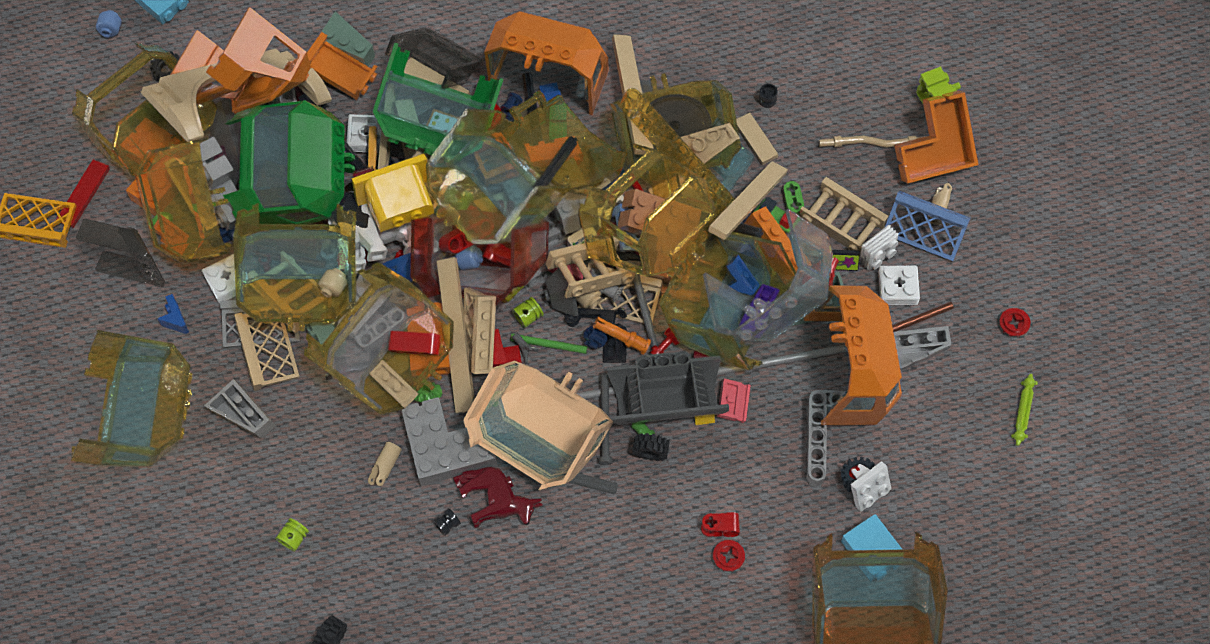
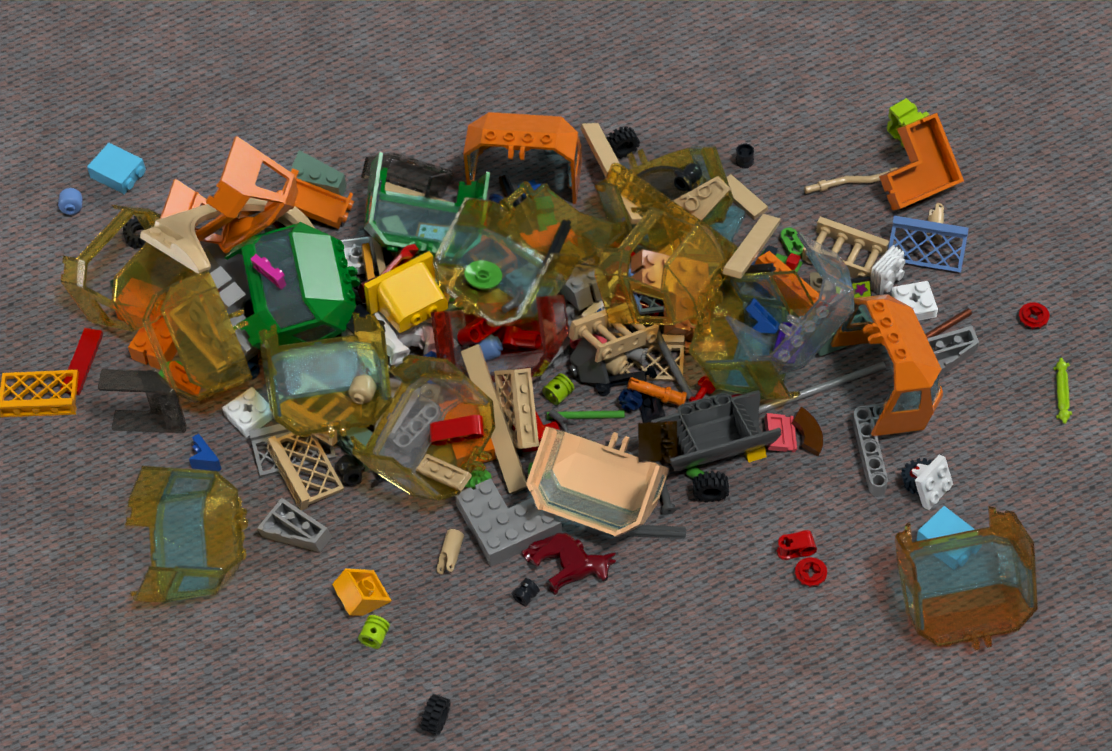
camera: 10 degrees left, 10 degrees down
(265, 155) = (264, 267): none -> dark pink plate
(290, 489) = (360, 591): none -> light orange slope
(306, 366) = (348, 468): none -> black animal
(396, 156) = (403, 257): none -> red slope
(475, 178) = (483, 274): none -> bright green dish
(496, 221) = (512, 304): none -> dark grey bar
(608, 391) = (657, 441): none -> dark brown hinge
(650, 60) = (623, 141): none -> black tyre
(705, 112) = (689, 176): none -> black animal
(763, 405) = (810, 431): none -> reddish brown tile

